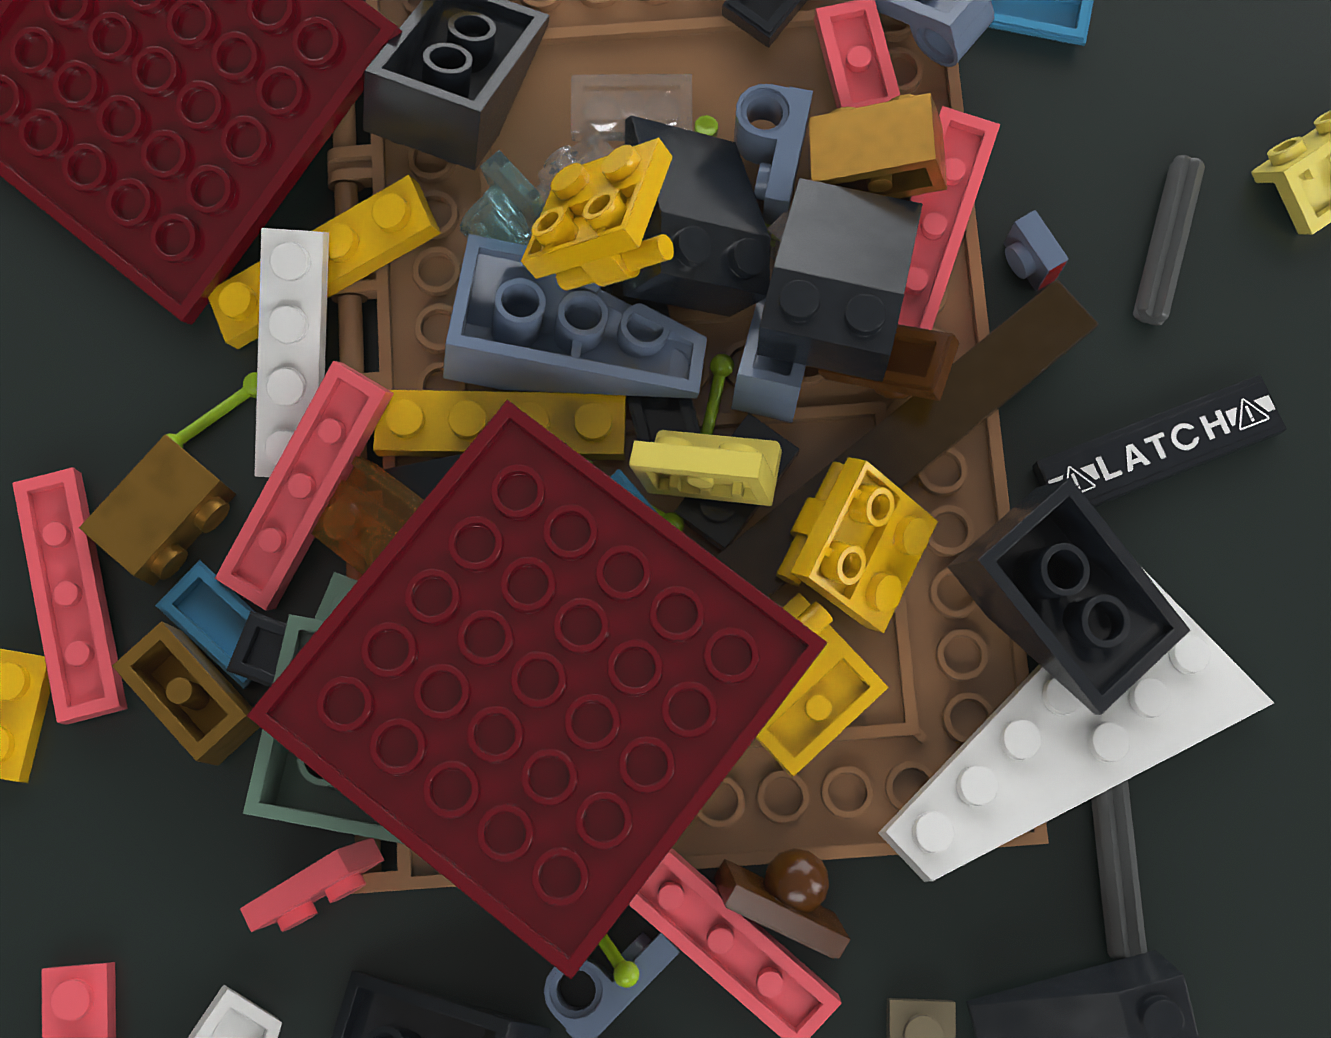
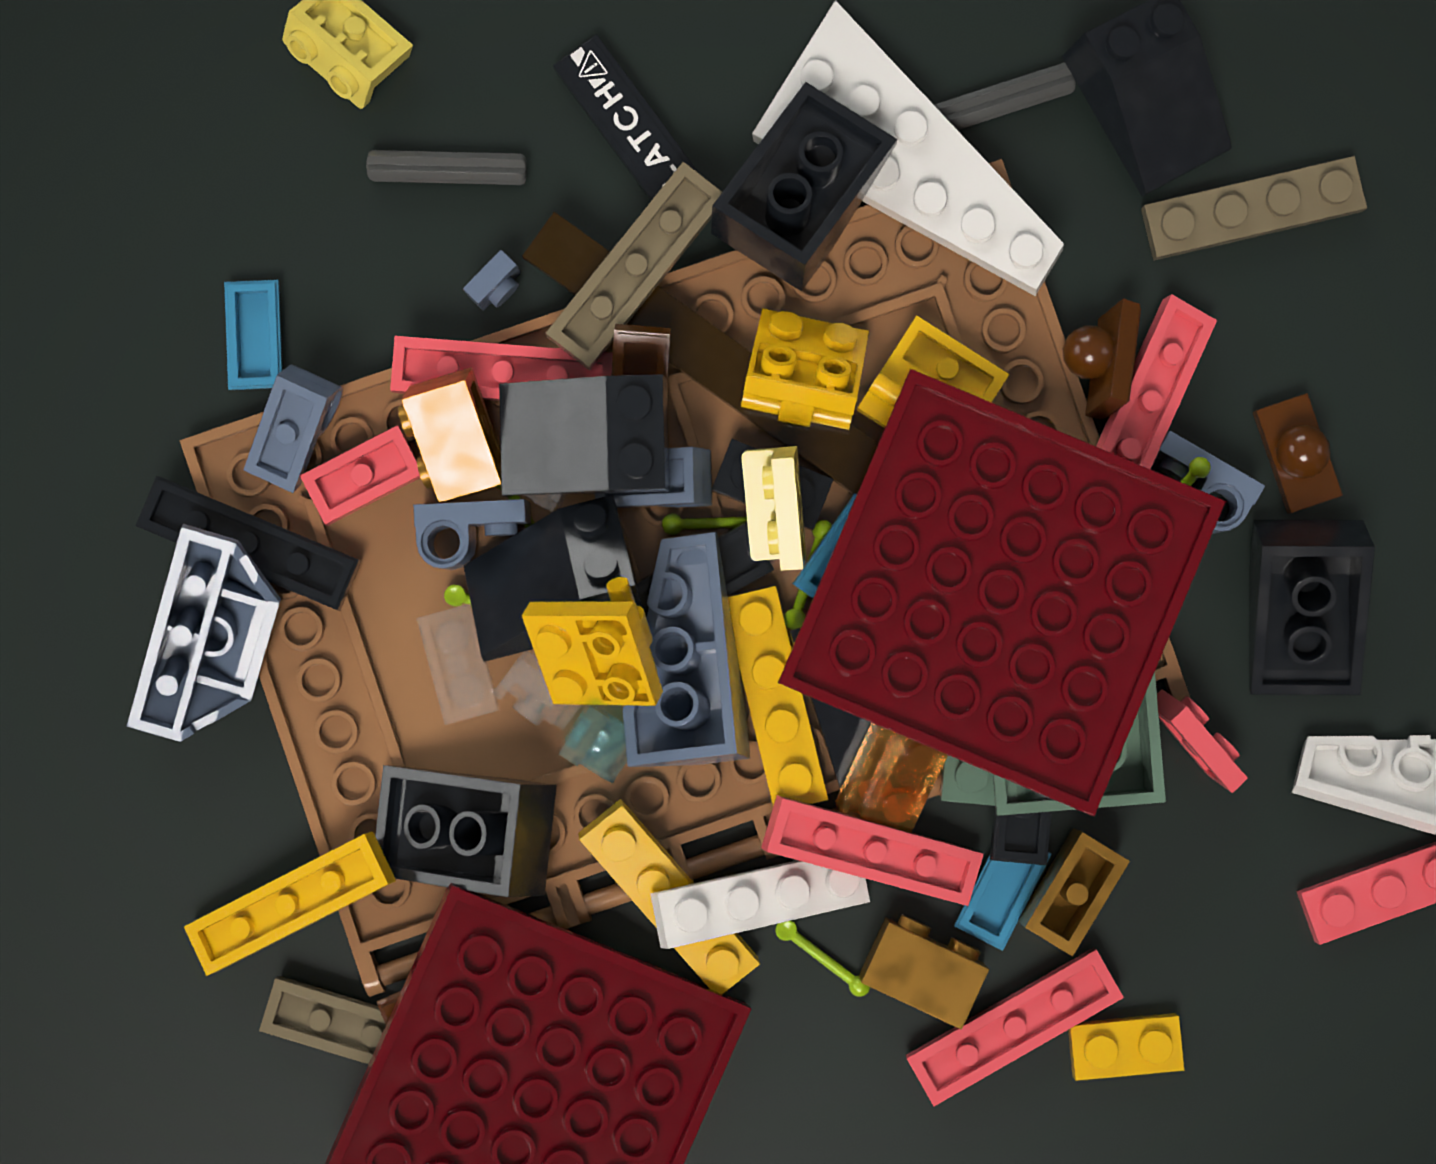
camera: 105 degrees left, 10 degrees up
(1019, 386) = (635, 266): none -> dark tan plate

